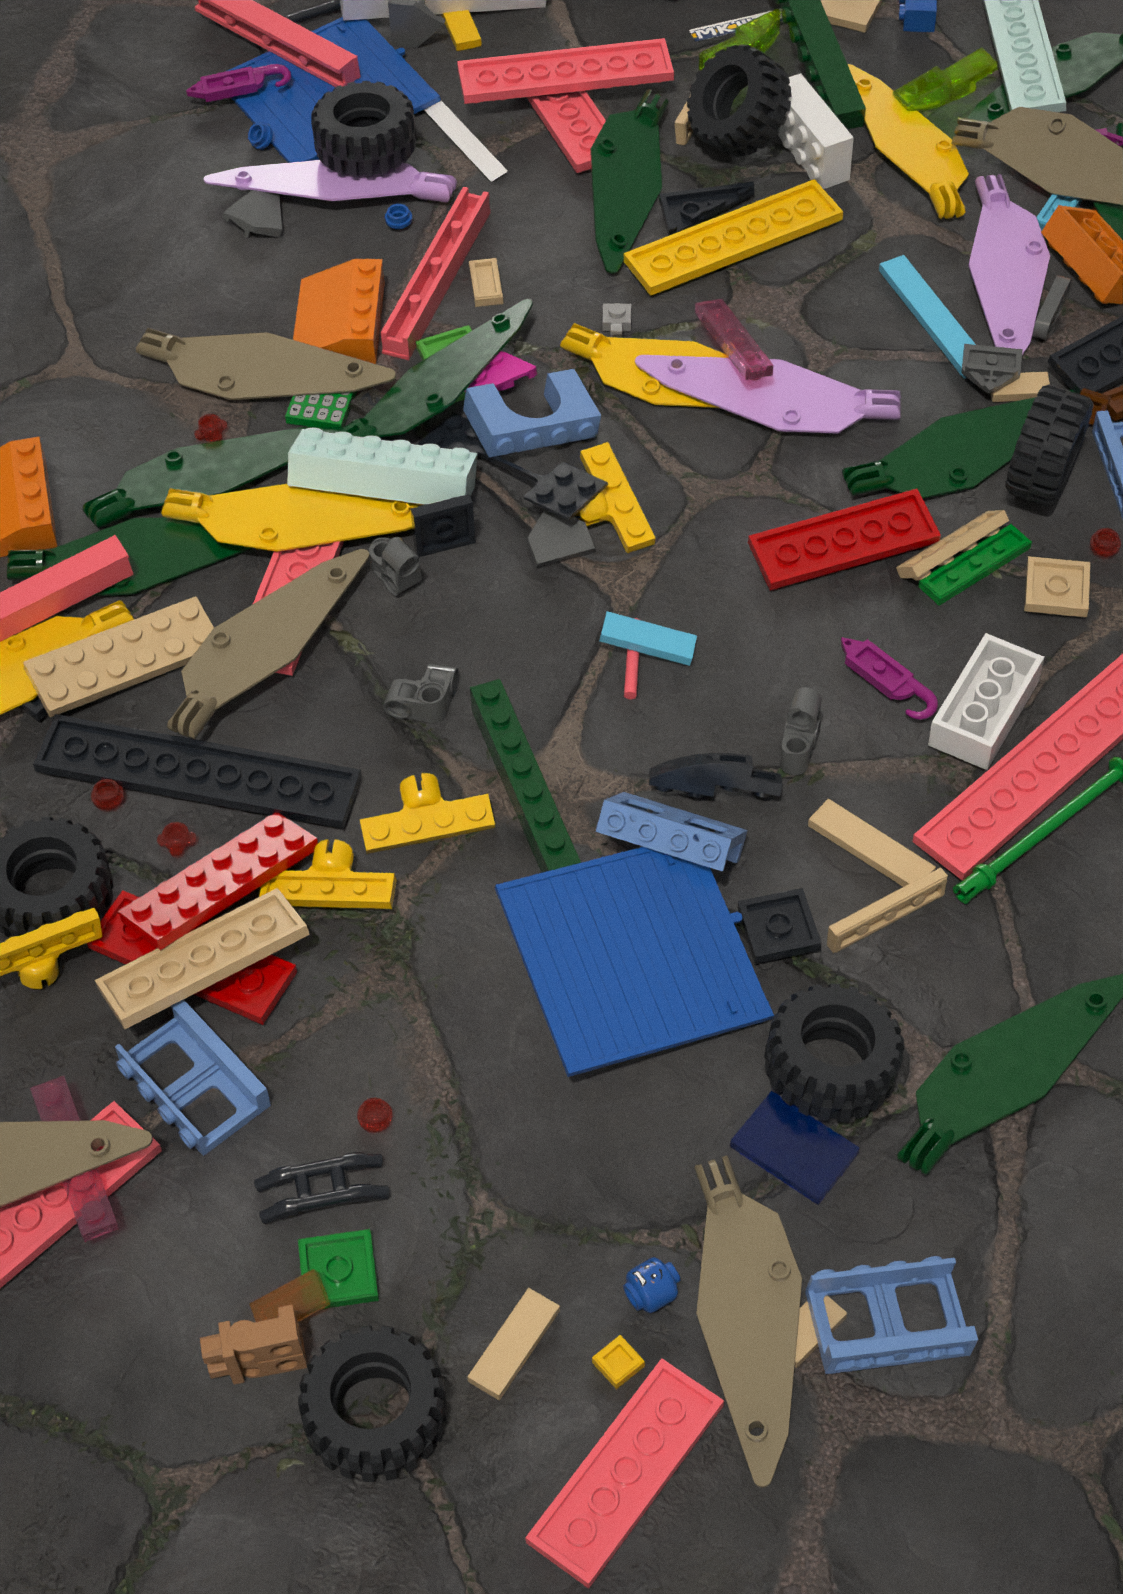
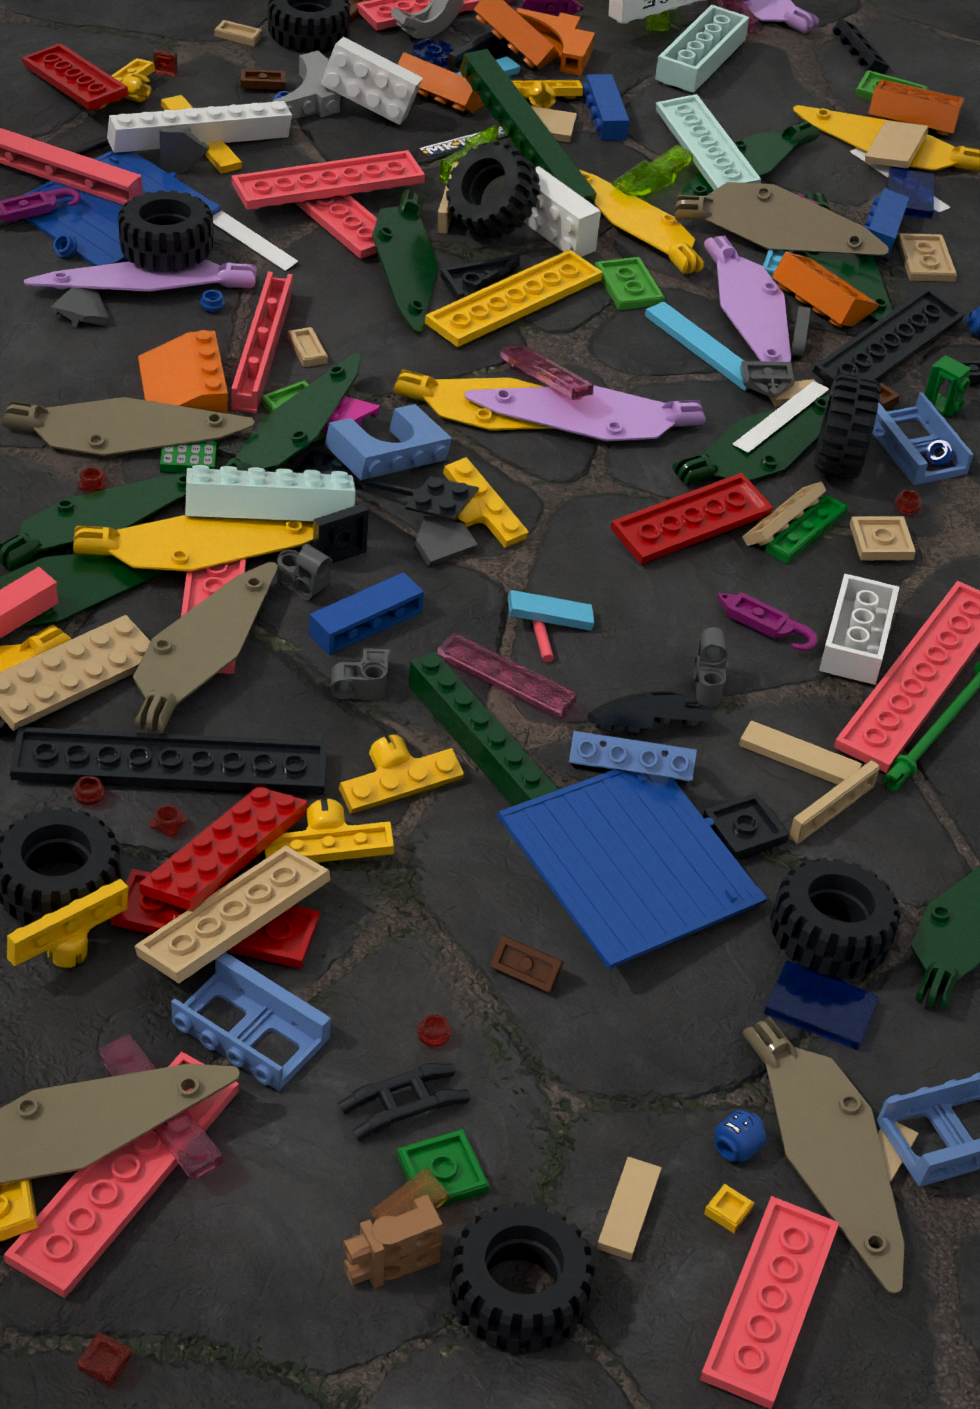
camera: 20 degrees left, 10 degrees down
(448, 620) = (366, 613): none -> blue brick
(491, 1054) = (527, 963): none -> reddish brown plate
(577, 711) = (507, 675): none -> clear pink plate
(616, 318) = (434, 365): light grey plate -> none
(873, 226) = (629, 283): none -> bright green tile
(986, 420) = (780, 416): none -> white sticker

